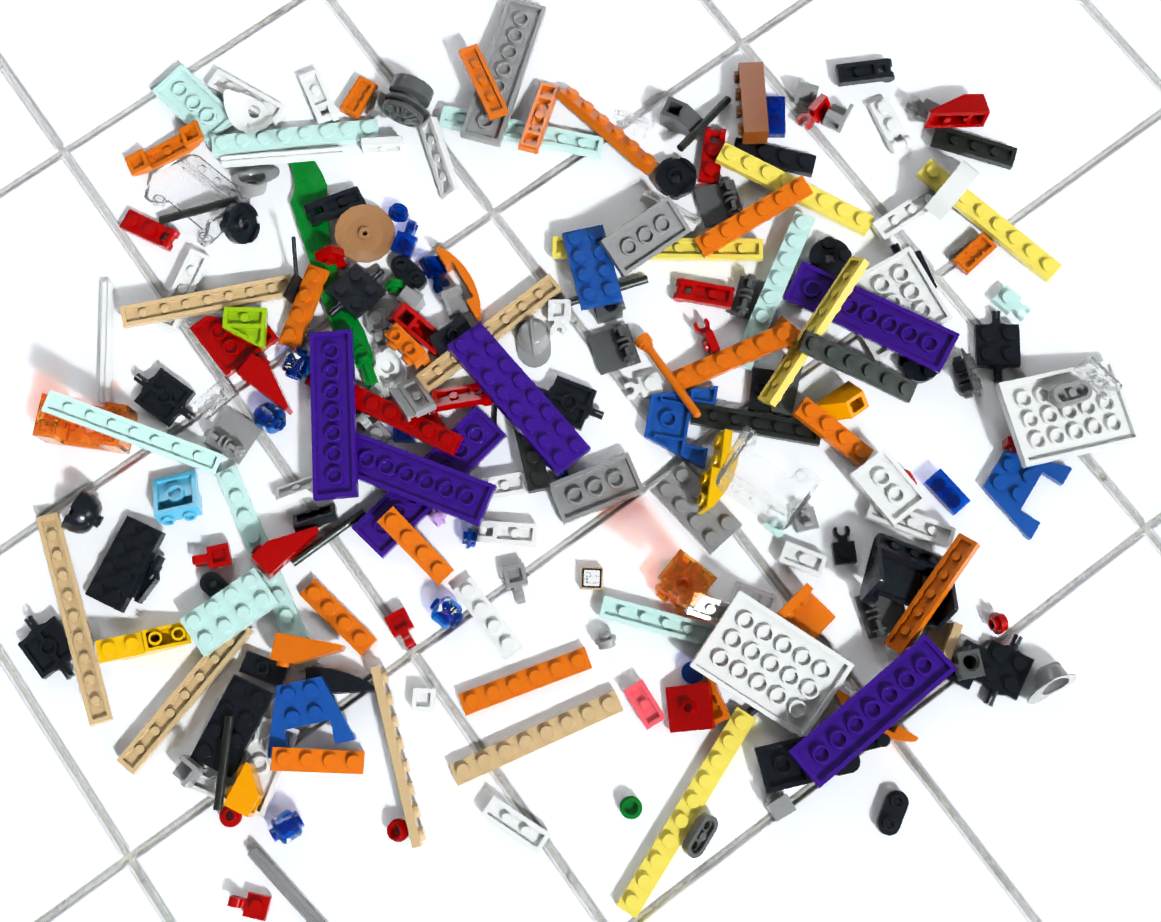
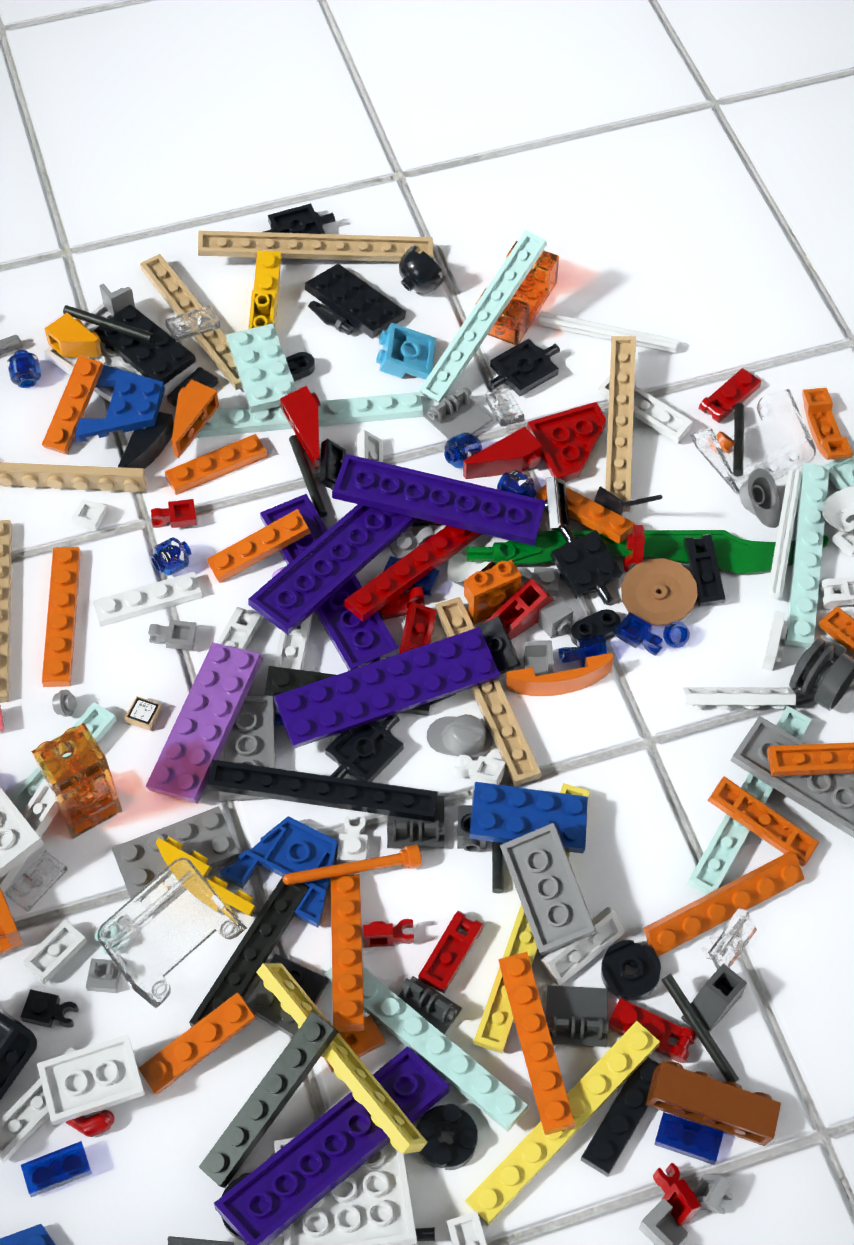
camera: 105 degrees right, 20 degrees down
(200, 688) = (193, 323): none -> clear plate
(205, 216) = (725, 442): none -> orange plate
(216, 556) = (328, 373): red plate -> none
(231, 219) = (720, 465): black plate -> none
(247, 324) = (578, 449): lime wing -> none
(310, 324) = (556, 503): none -> plate
(394, 286) = (580, 605): green plate -> none
(412, 399) = (428, 580): light grey plate -> none
(469, 538) = (241, 600): clear blue plate -> none
(588, 524) = (204, 722): none -> medium lavender plate
(618, 417) = (322, 790): none -> black plate
(844, 402) = (231, 1071): light orange slope -> none

